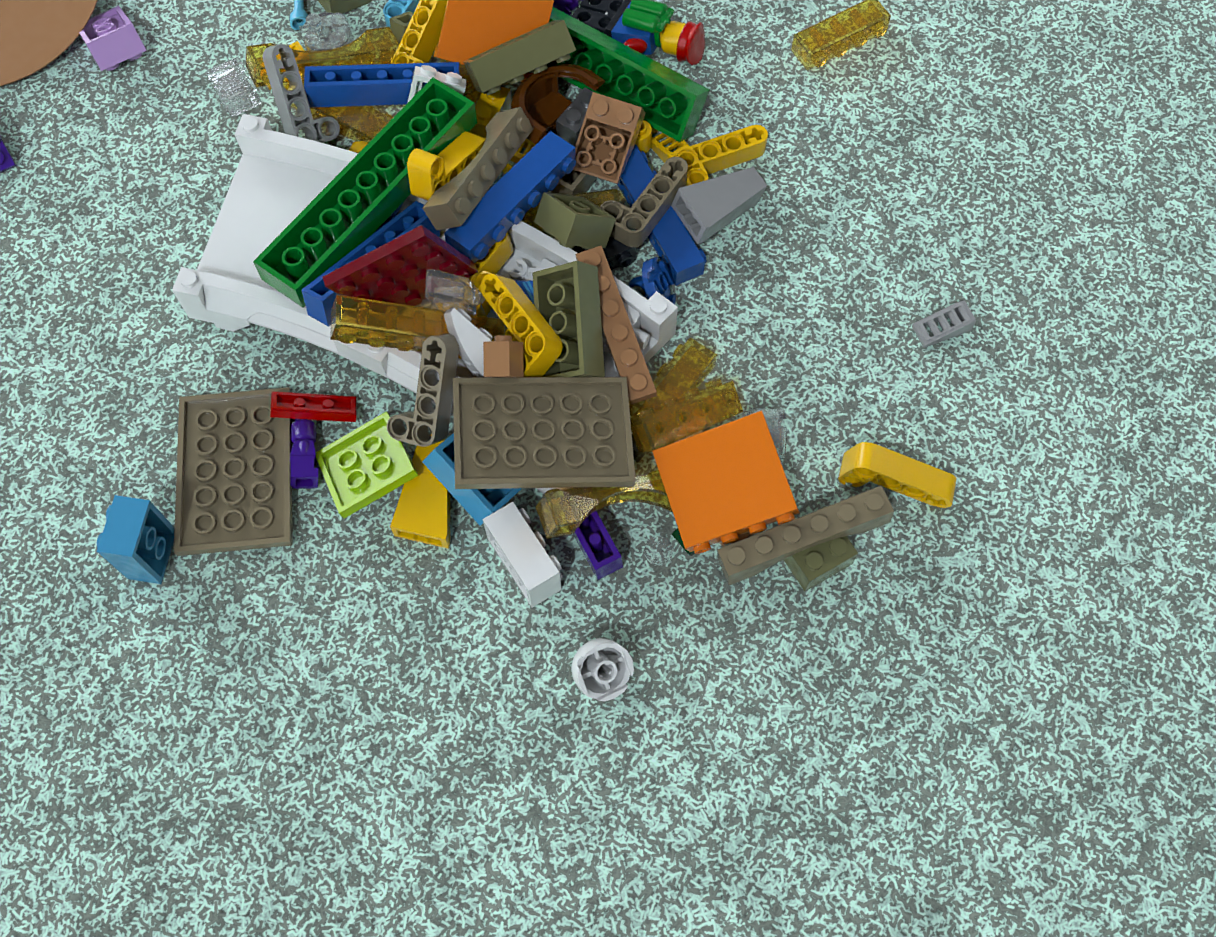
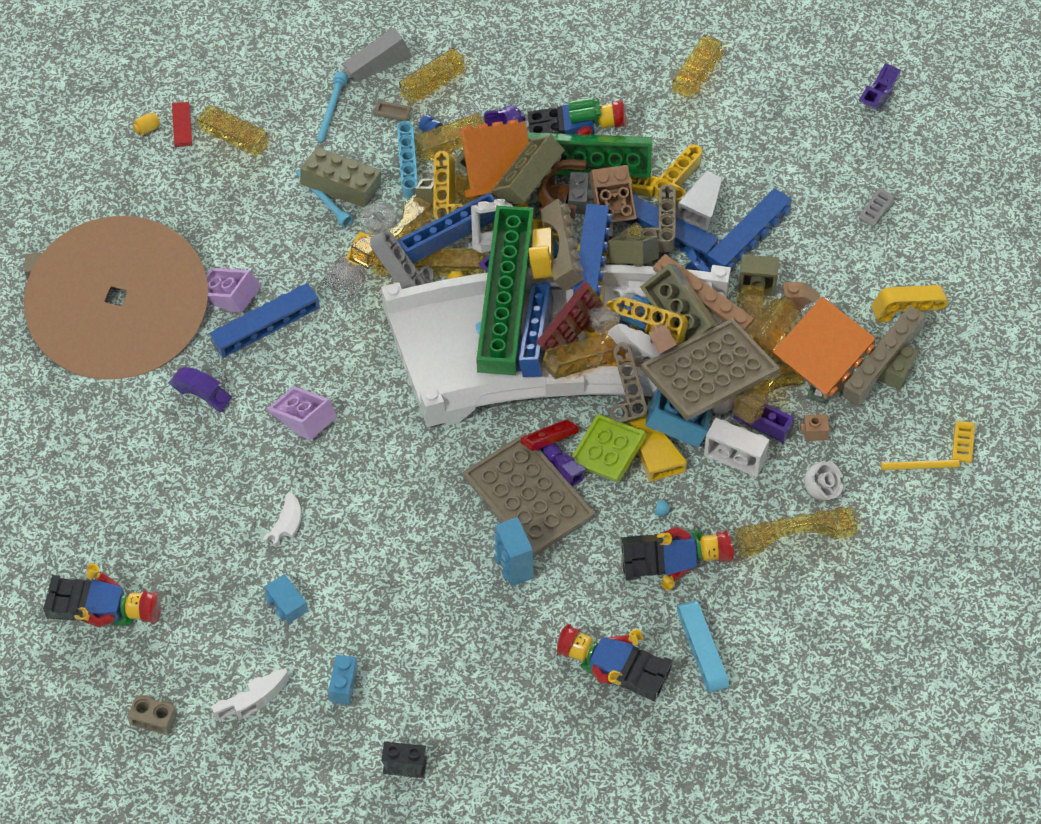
camera: 30 degrees left, 10 degrees down
(68, 225) = (303, 412): none -> lavender slope
(117, 92) = (264, 320): none -> blue brick
(145, 771) = (617, 661): none -> piece
(281, 811) = (702, 646): none -> medium azure beam
(334, 656) = (672, 553): none -> piece
(377, 582) = (662, 508): none -> medium azure hinge
(460, 697) = (832, 523): none -> clear yellow arch
(649, 583) = (815, 427): none -> medium nougat brick
(722, 333) = (759, 271): none -> olive brick
(754, 272) = (750, 230): none -> blue brick
(756, 716) = (920, 464): none -> yellow bar
(759, 389) = (799, 293): none -> medium nougat slope
(853, 698) = (966, 430): none -> yellow slope
(1052, 174) = (882, 87): none -> dark purple arch

